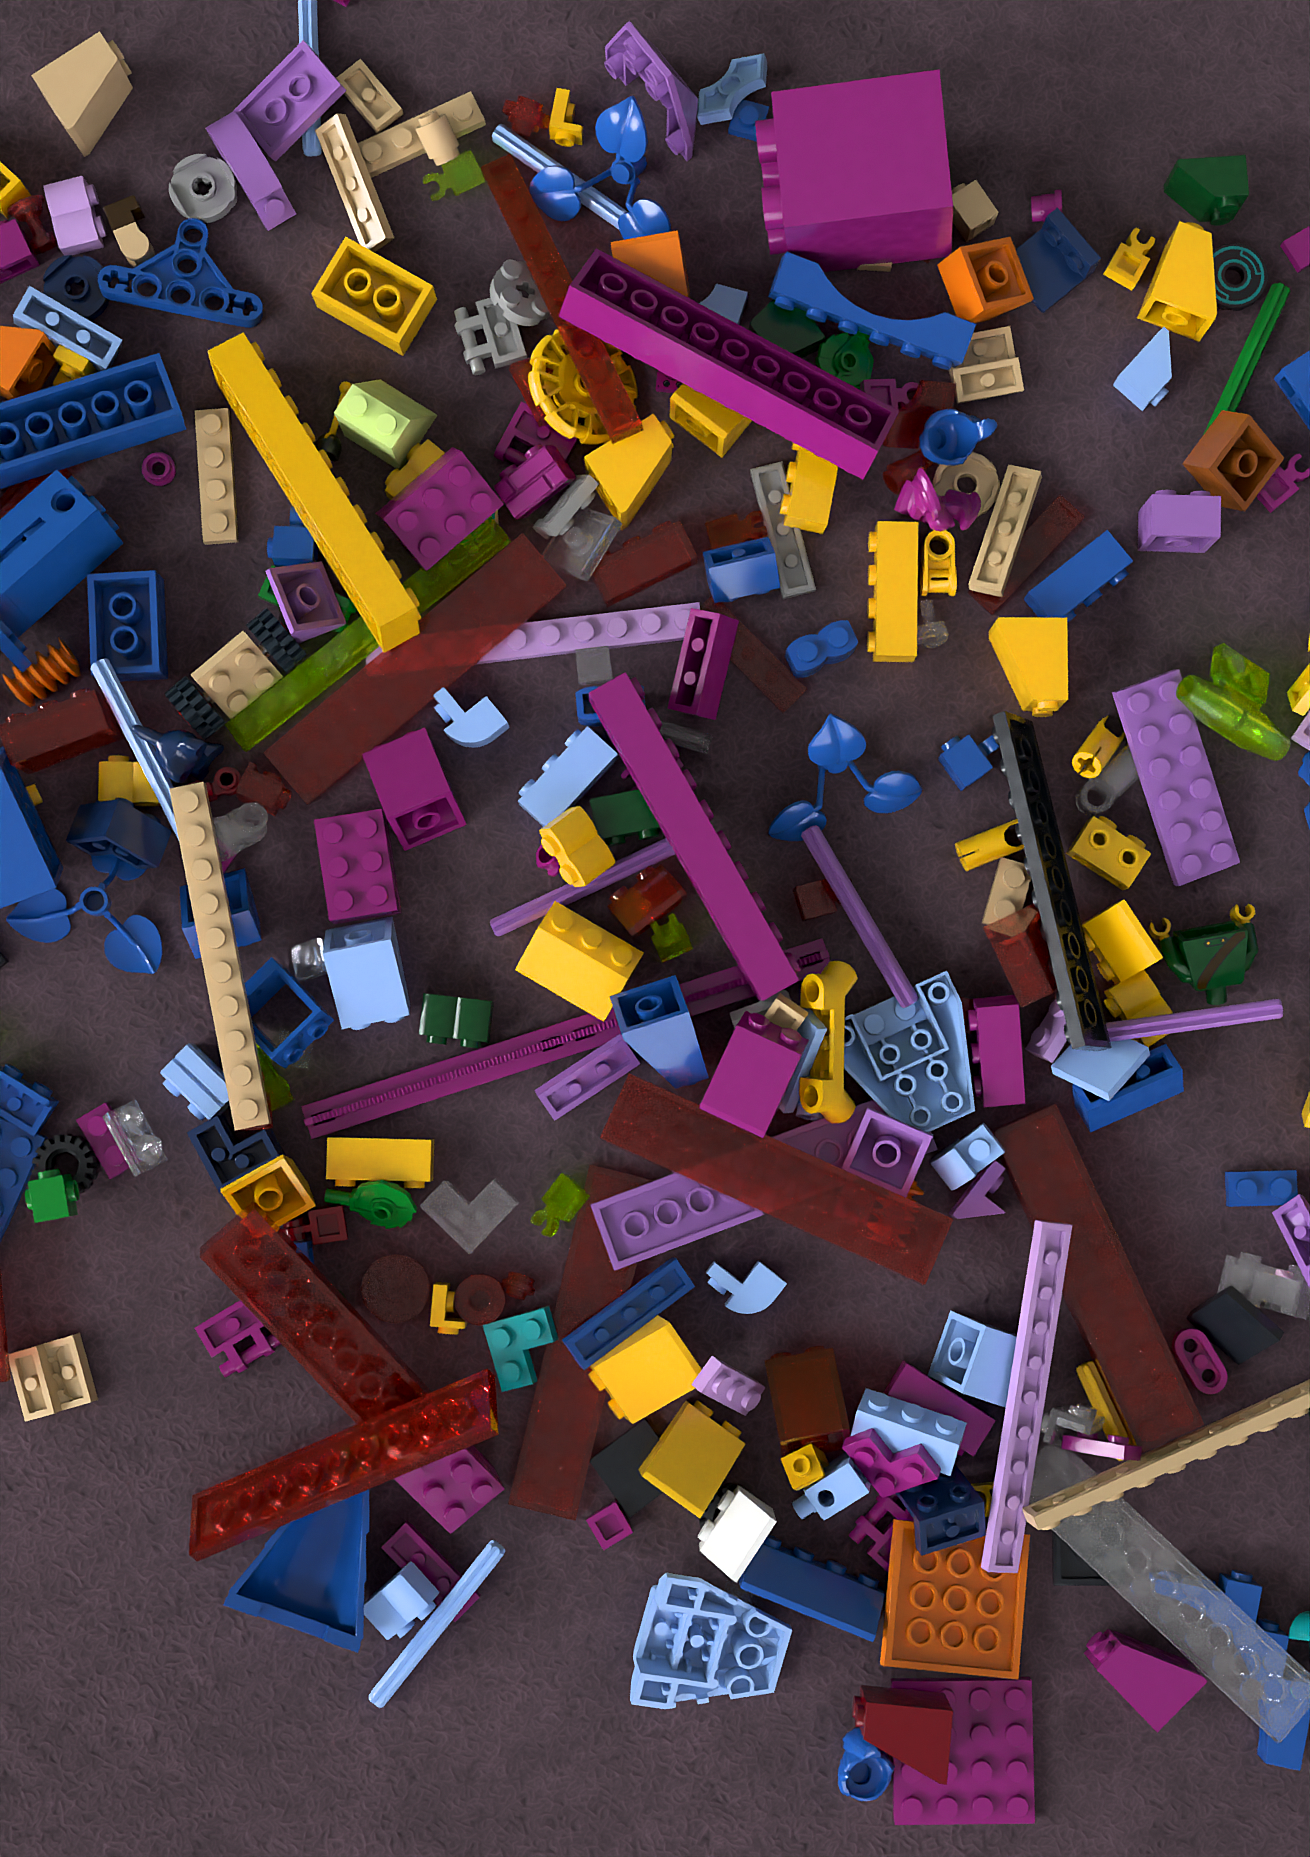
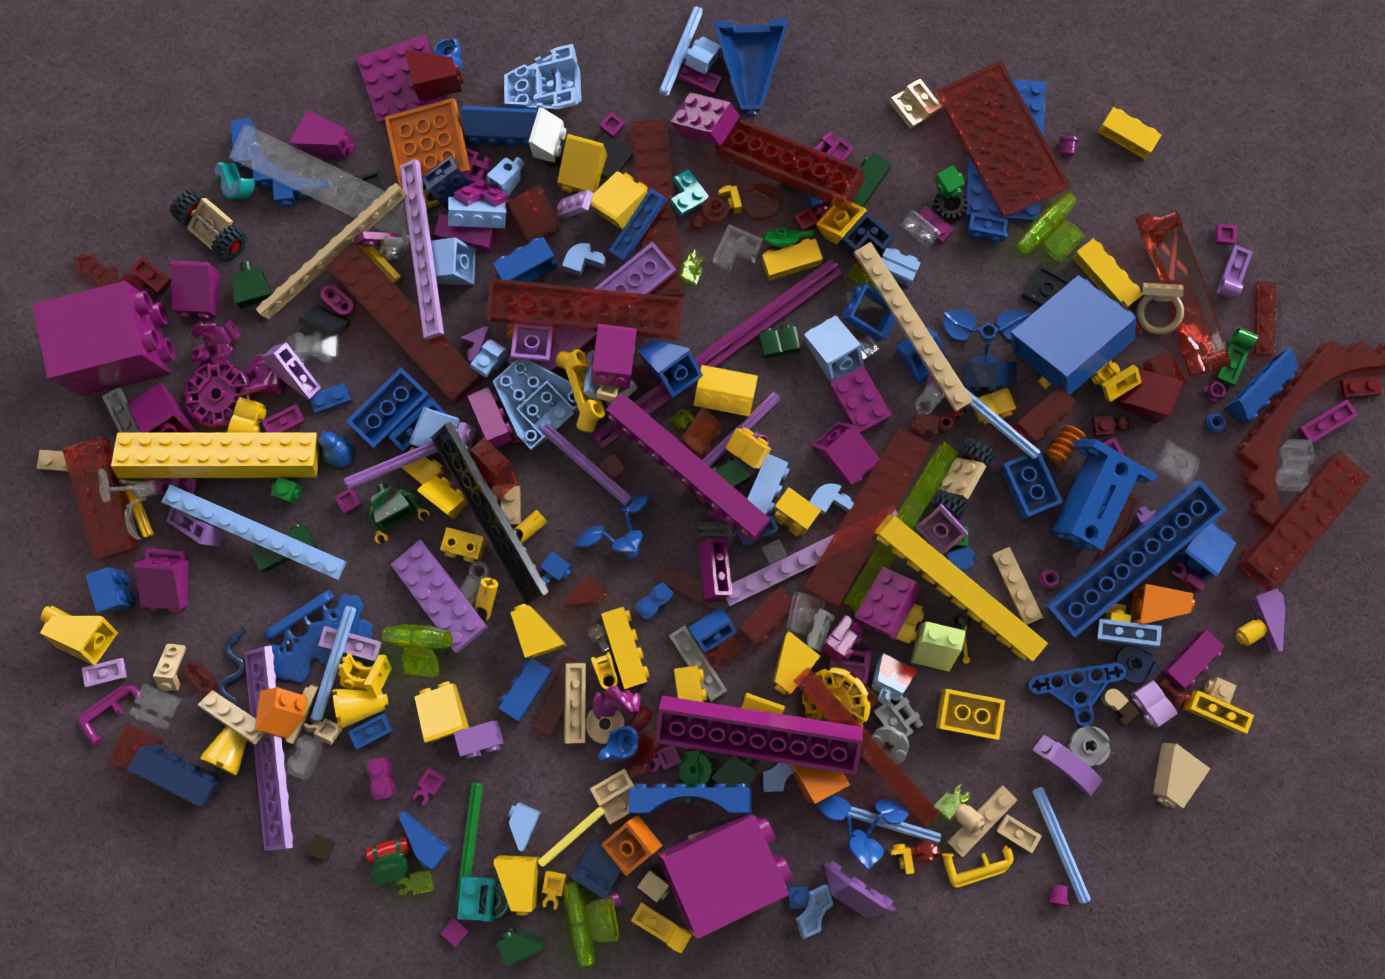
camera: 160 degrees right, 5 degrees down
(180, 752) = (975, 425): dark blue animal -> none
(181, 1266) = (875, 170): none -> dark green brick
(289, 100) = (1061, 812): medium lavender plate -> none
(344, 1464) = (752, 101): clear red plate -> none
(354, 183) = (1006, 777): tan plate -> none
(454, 61) = (979, 873): none -> yellow piece
(479, 393) = (891, 678): none -> torso
(537, 706) = (795, 512): none -> yellow brick
(587, 1077) = (703, 332): medium lavender plate -> none
(805, 1466) = (523, 180): yellow bracket -> none
(852, 1307) = (527, 262): none -> blue piece
(926, 701) = (587, 592): none -> clear red slope
(980, 145) = (661, 927): none -> yellow plate
(1076, 325) = (568, 839): none -> light yellow tile
(1092, 186) = (588, 922): none -> clear neon green plate
(1168, 1128) = (387, 407): none -> blue slope
(1228, 585) = (440, 712): none -> yellow slope
(1233, 460) = (459, 785): dark orange brick -> none
(1266, 286) = (470, 898): none -> teal plate
(1277, 1092) = (336, 449): none -> blue hair
(1284, 989) = (348, 500): none -> magenta plate

